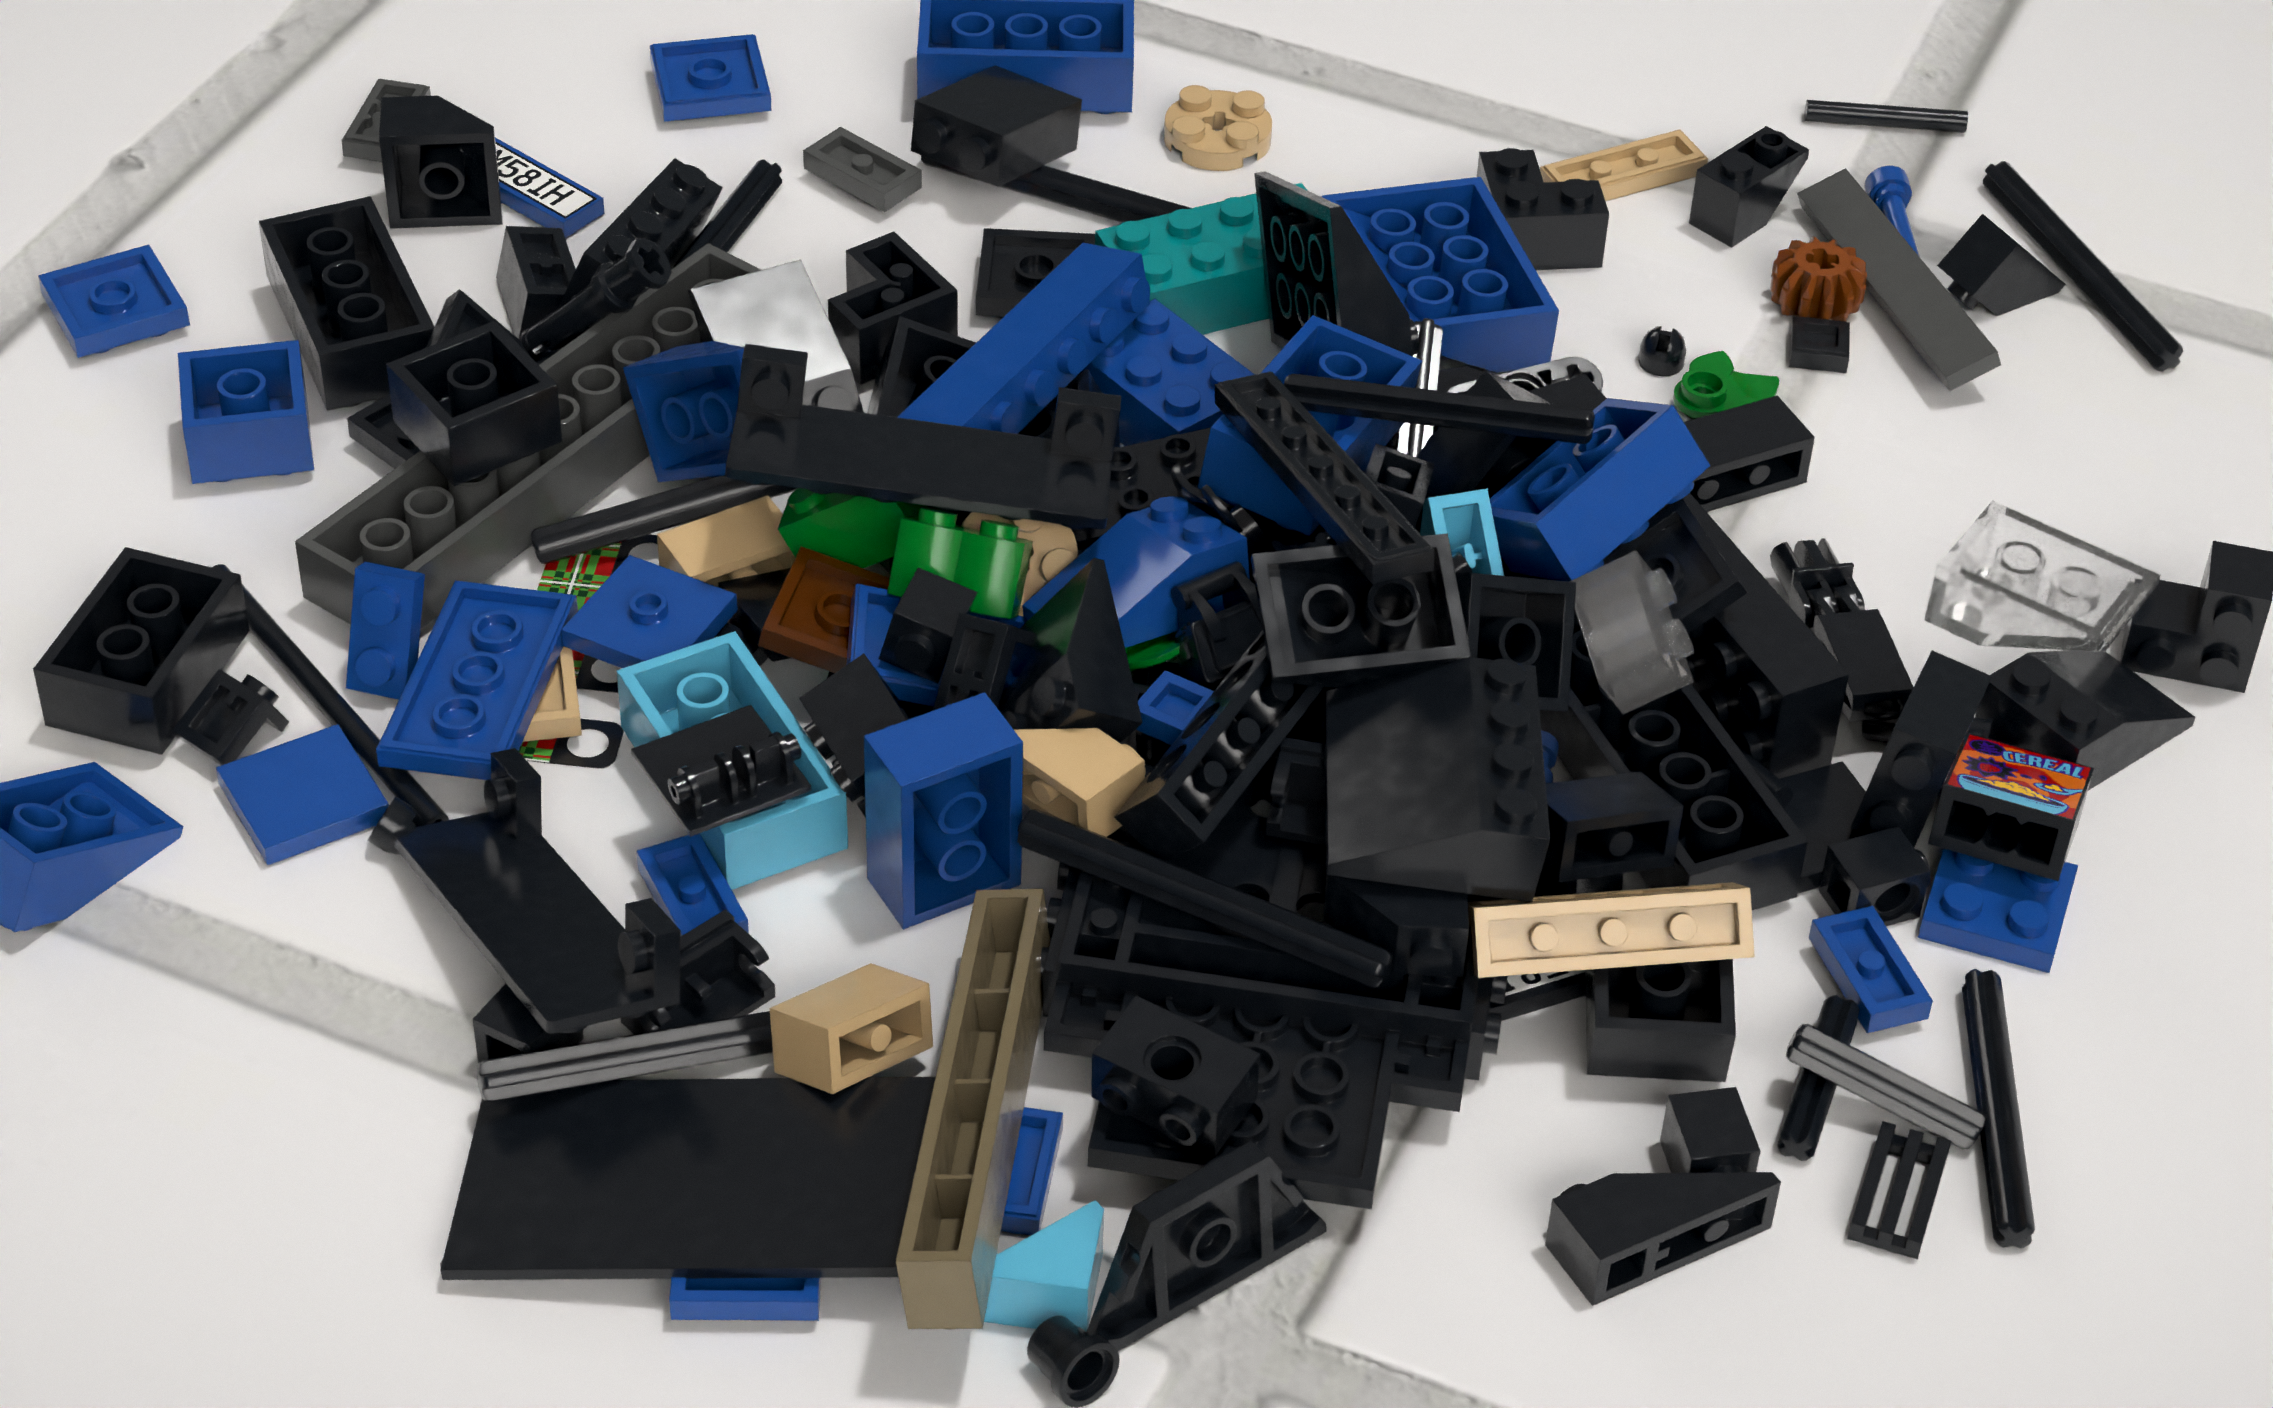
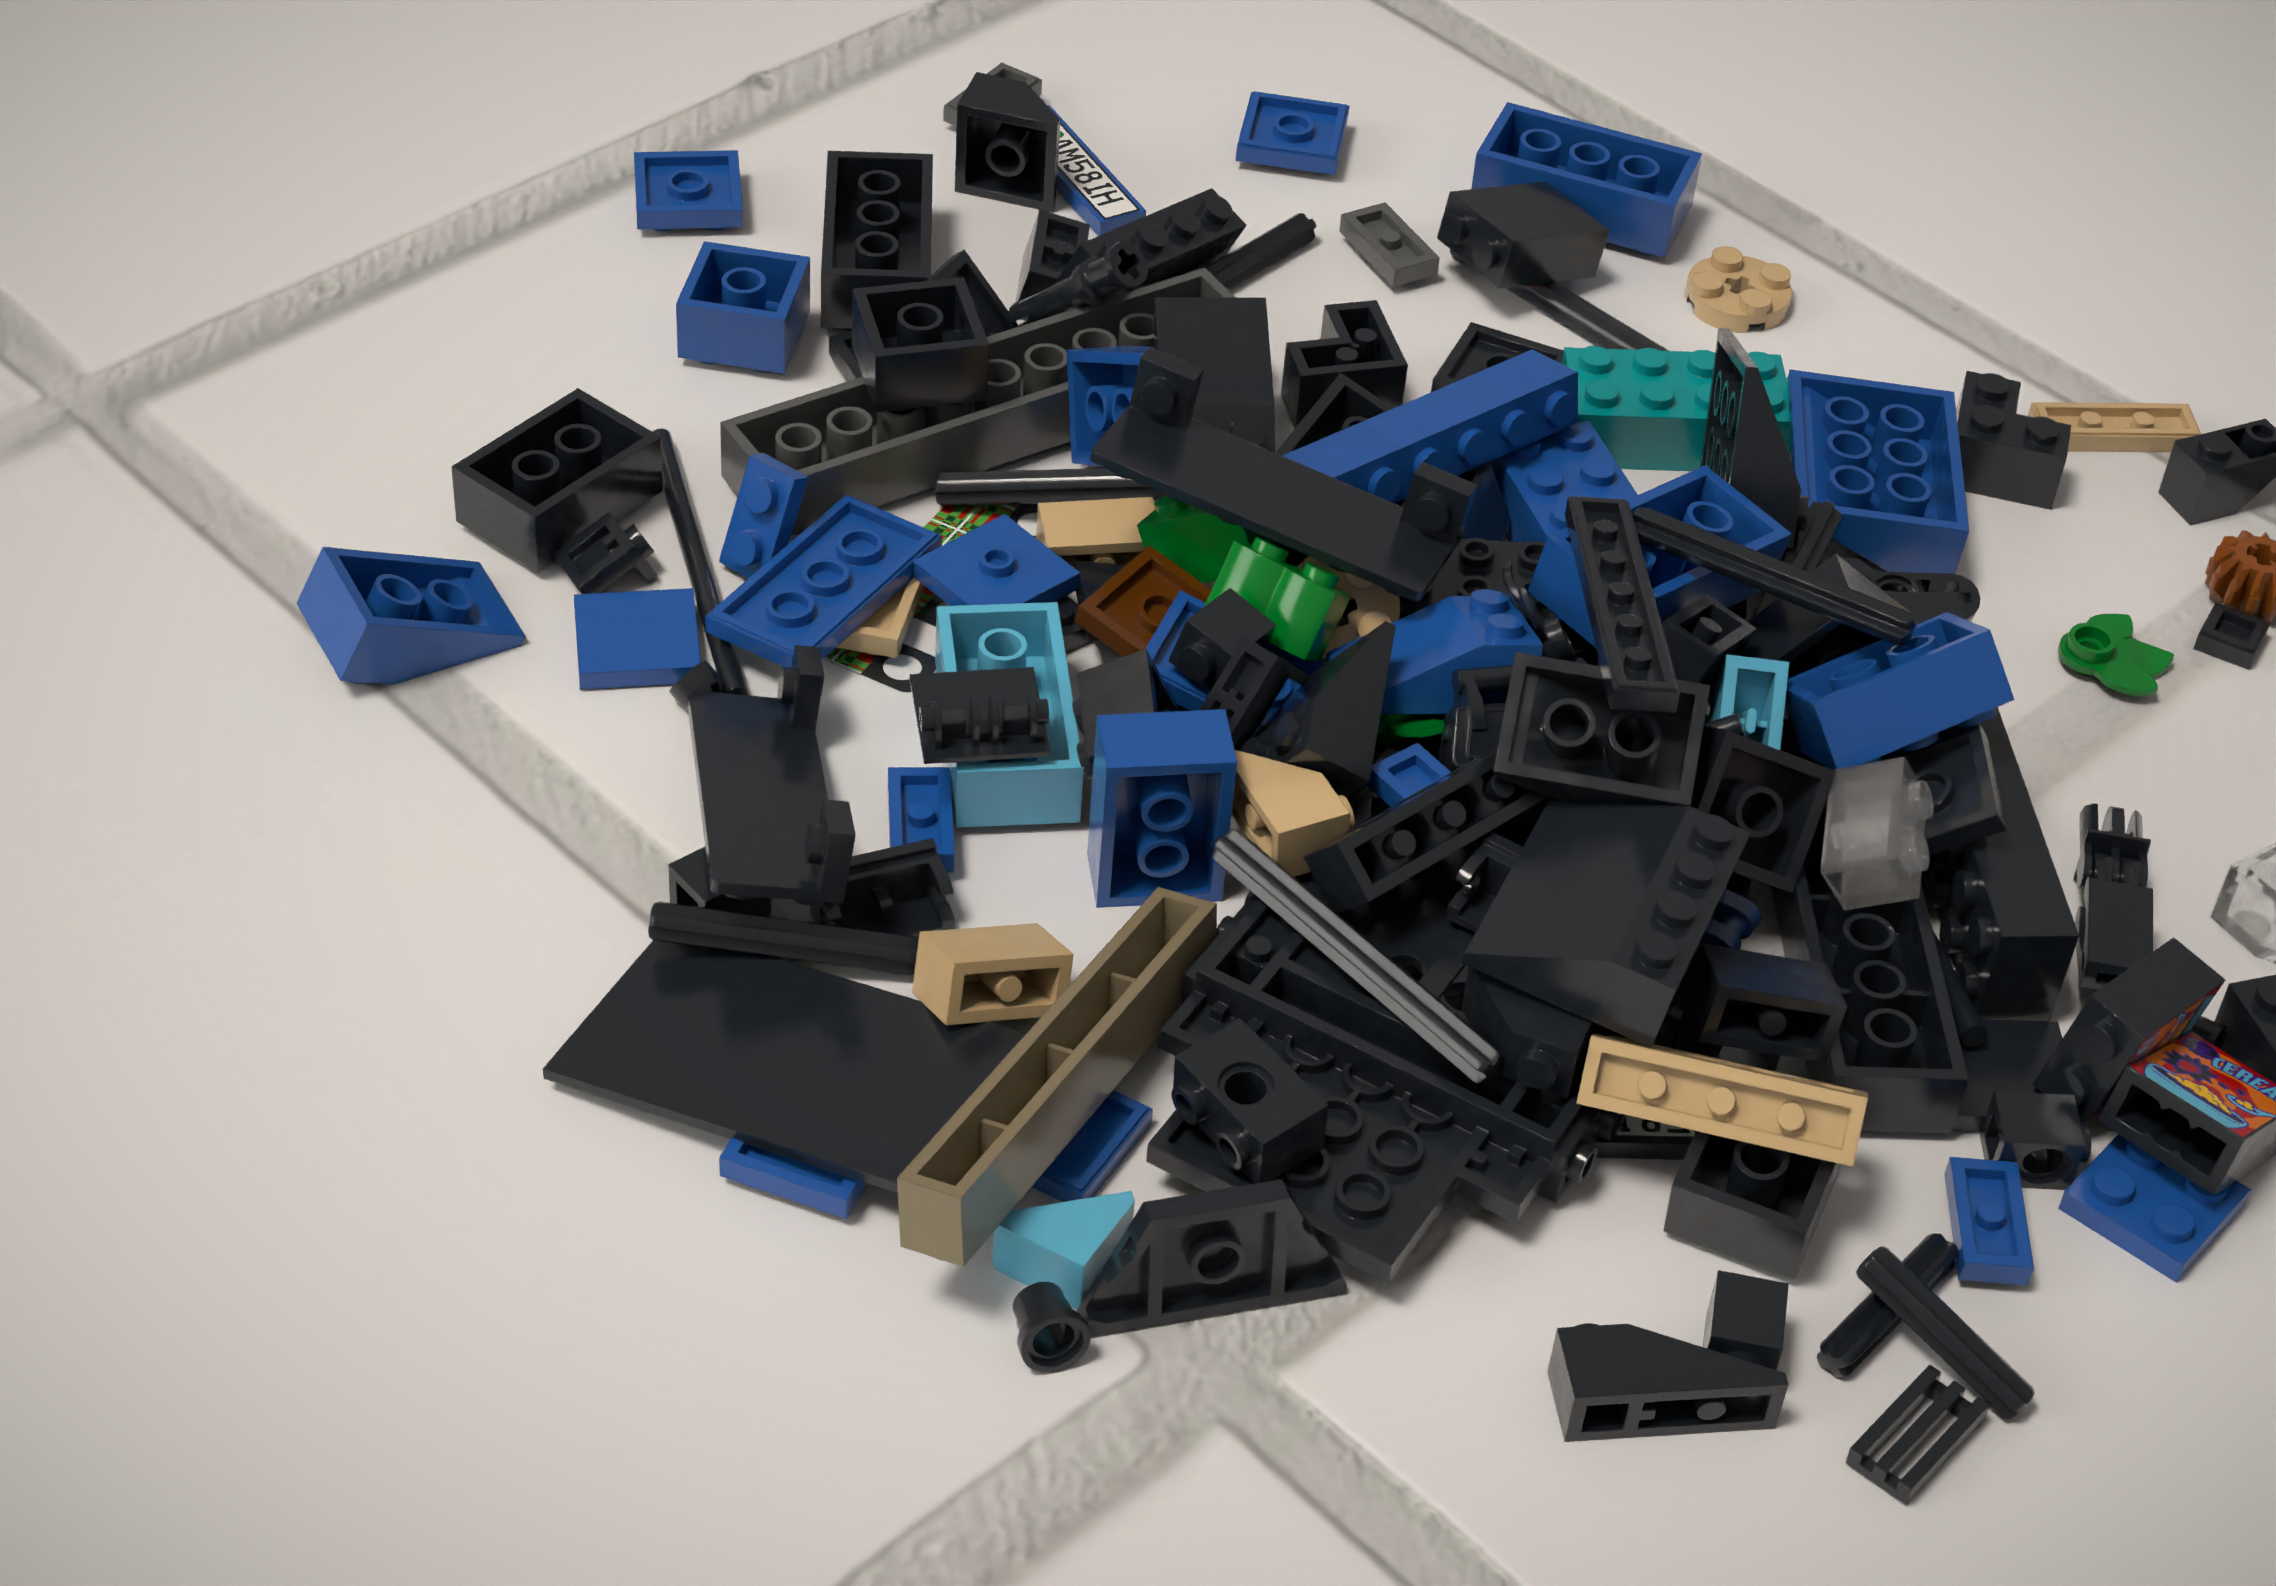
camera: 20 degrees right, 0 degrees up
(1662, 363) = (2071, 612): black hinge -> none
(1750, 452) = (2085, 712): black brick -> none
(1997, 1100) = (2054, 1392): black axle -> none

